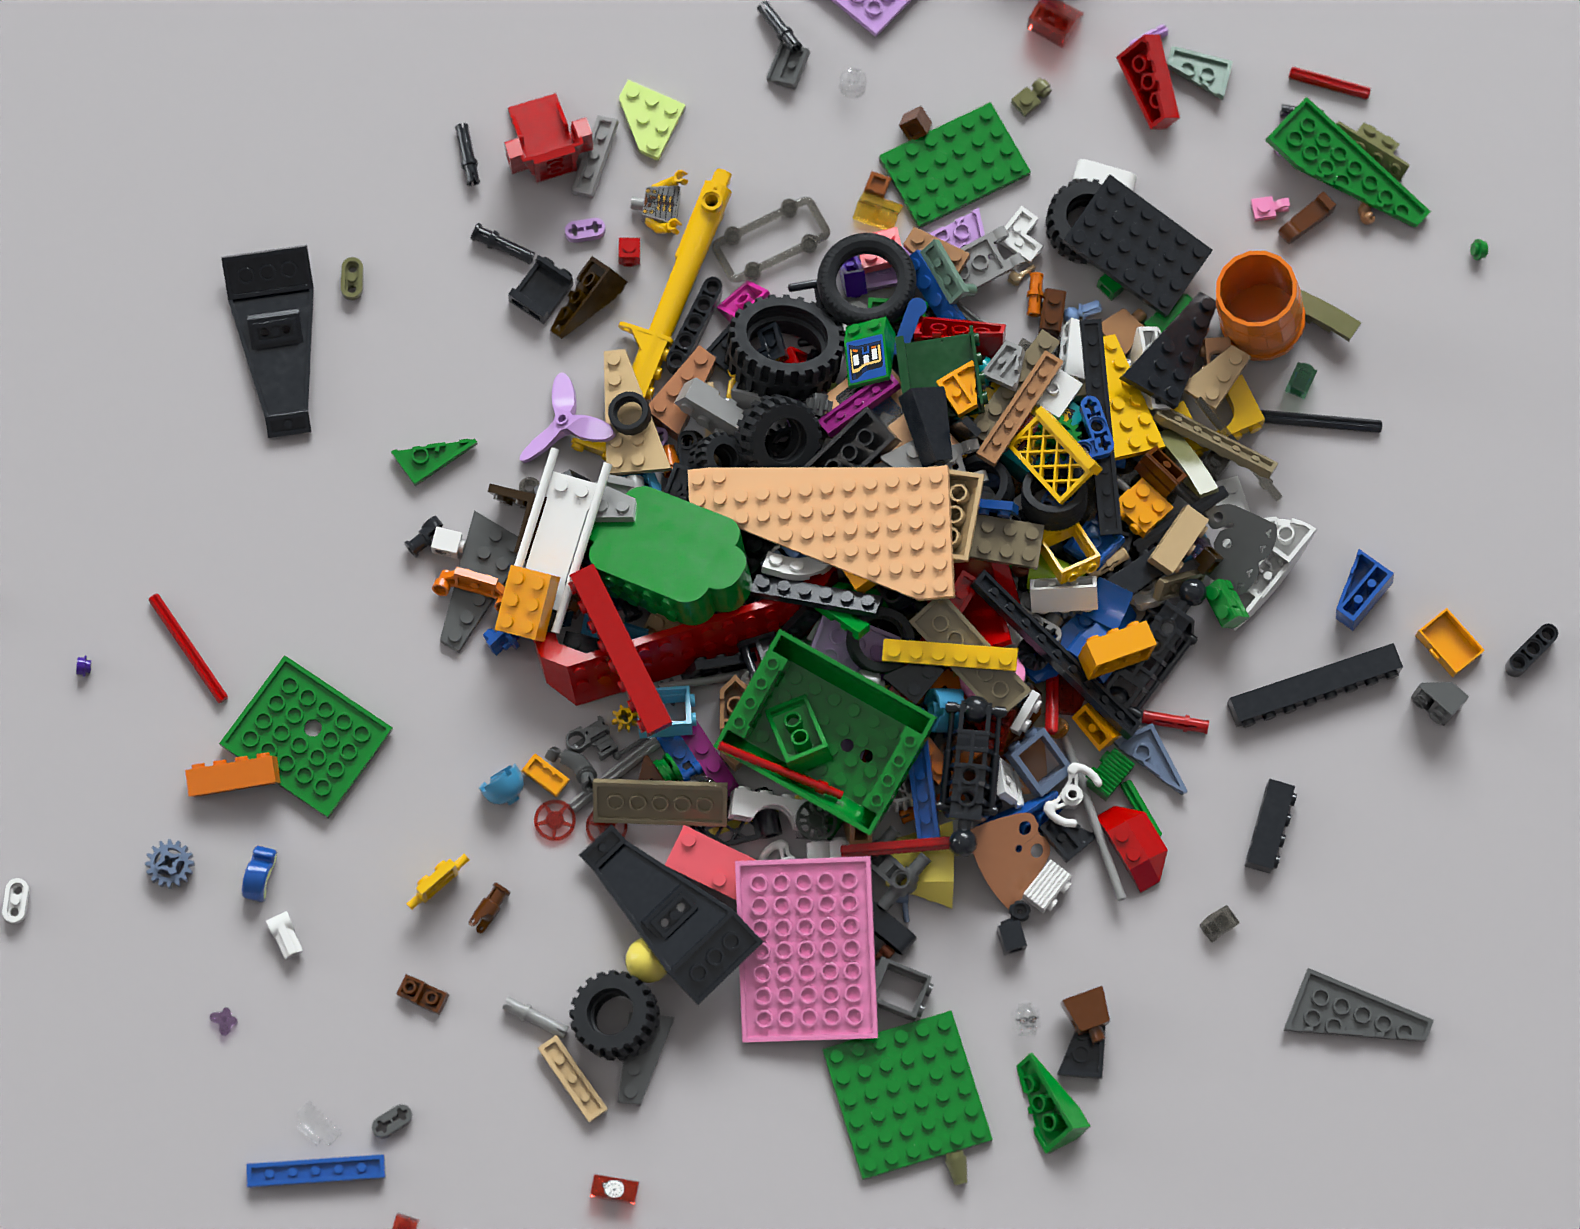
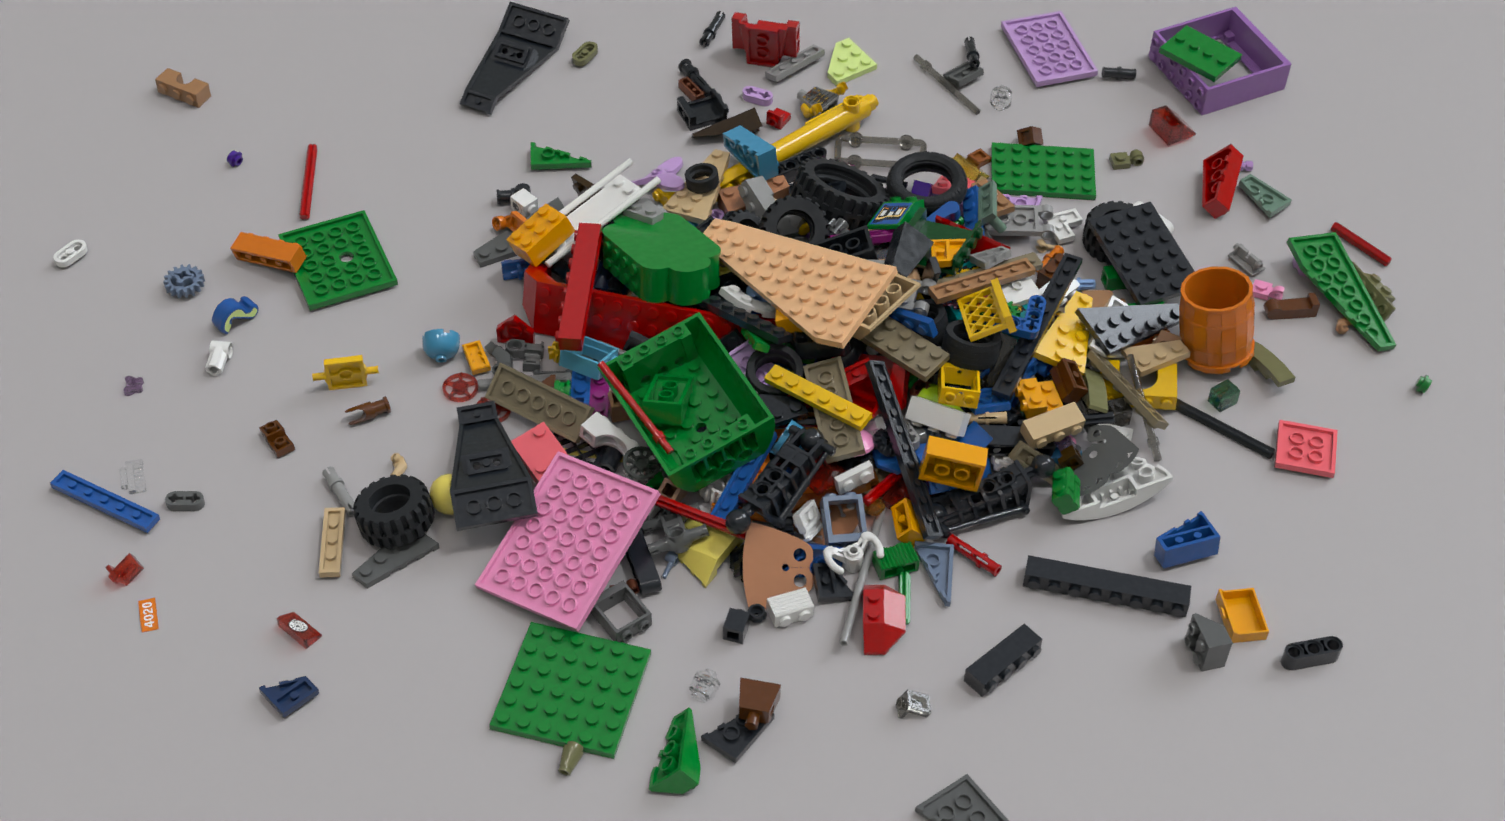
camera: 35 degrees right, 25 degrees down
(507, 265) = (690, 89): none -> copper piece
(565, 723) = (515, 329): none -> red plate
(569, 952) = (399, 464): none -> tan arm
(653, 340) = (752, 152): none -> dark azure wedge
(739, 74) = (927, 67): none -> clear smoke bar
(970, 866) = (736, 561): none -> black plate
(1229, 177) = (1248, 262): none -> light grey hinge
(1409, 402) = (1306, 448): none -> coral plate

